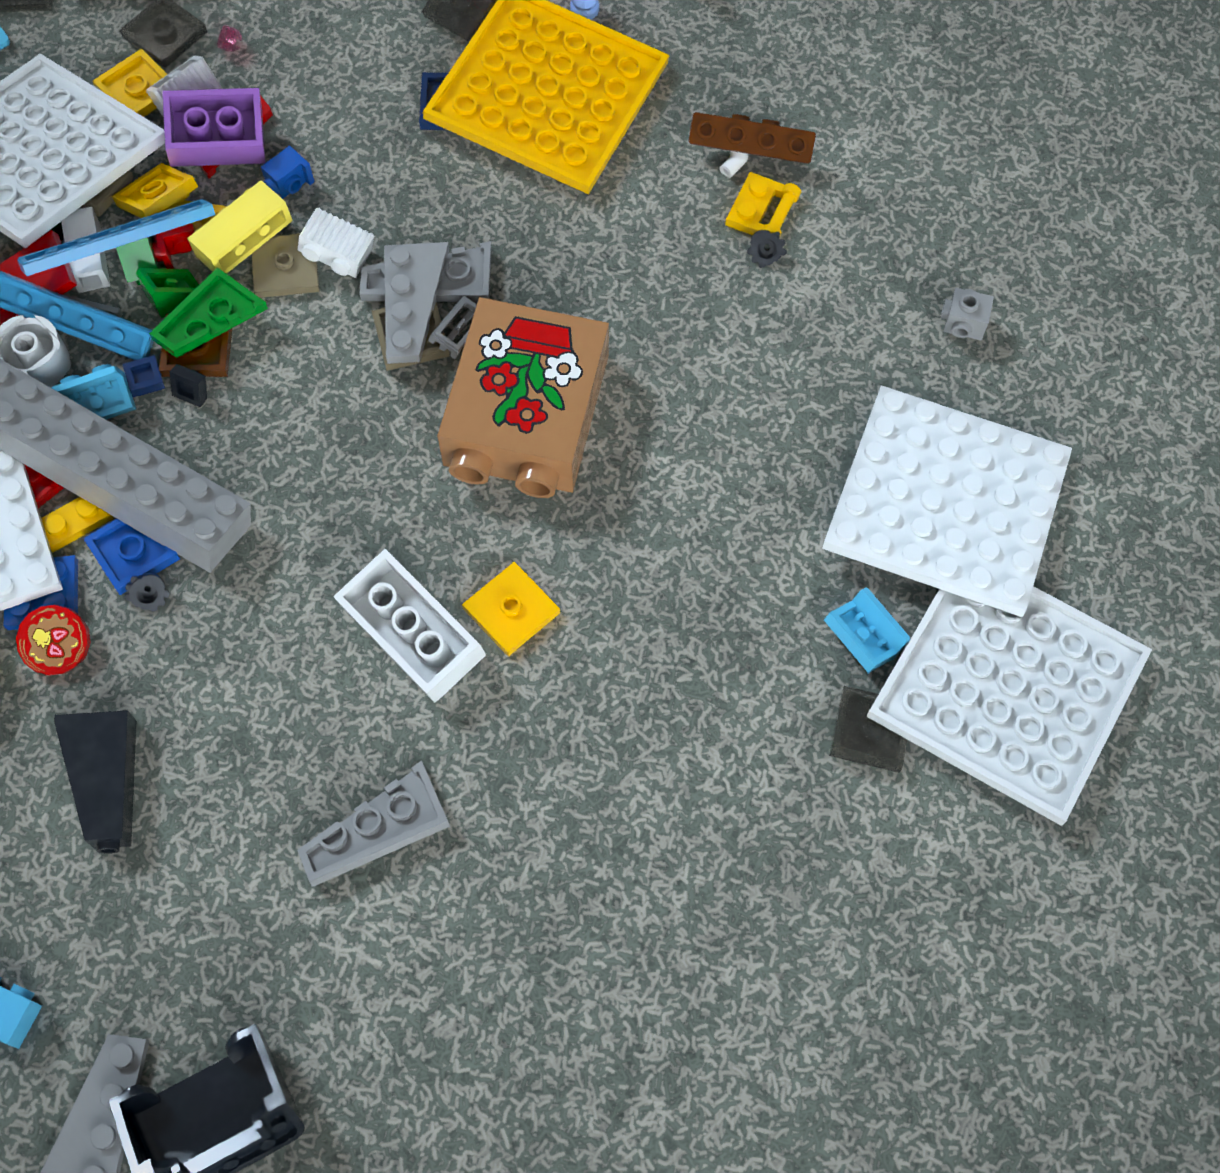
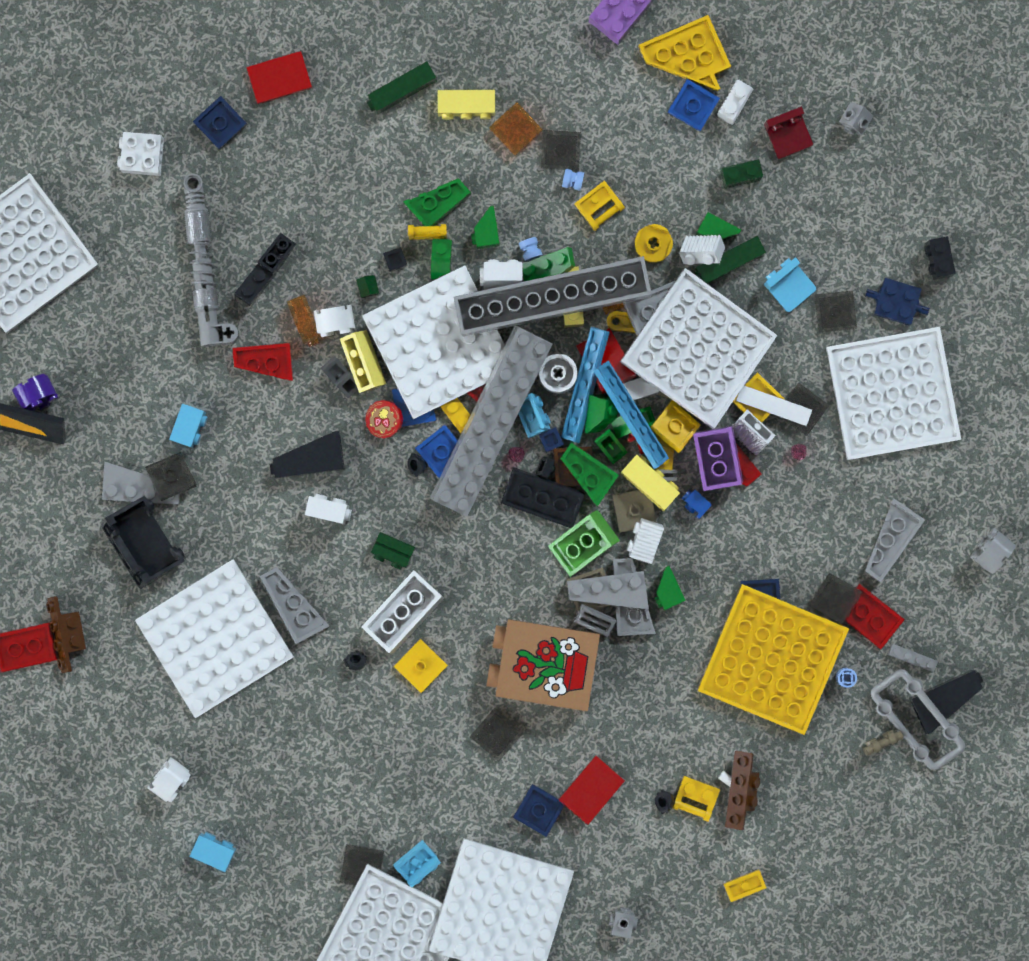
camera: 85 degrees right, 20 degrees up
(84, 1048) = (170, 476): none -> clear smoke plate
(108, 289) = (600, 413): none -> green slope
(149, 61) = (774, 405): none -> white sticker
(158, 431) = (516, 454): none -> clear pink hinge
(199, 741) = (333, 511): none -> white brick
(239, 393) = (542, 497): none -> black tile
(296, 639) = (392, 550): none -> dark green brick
(327, 336) = (583, 543): none -> bright green slope
(420, 219) = (668, 590): none -> green slope
(422, 987) = (214, 638): none -> white plate
(491, 717) = (355, 661): none -> black animal
(642, 492) = (496, 734): none -> clear smoke plate
(697, 1085) = (169, 779): none -> white brick
(744, 349) = (591, 790): none -> red tile
(775, 431) = (539, 810): none -> dark blue plate
(843, 1007) = (213, 852): none -> medium azure brick
(903, 148) = (744, 885): none -> yellow plate

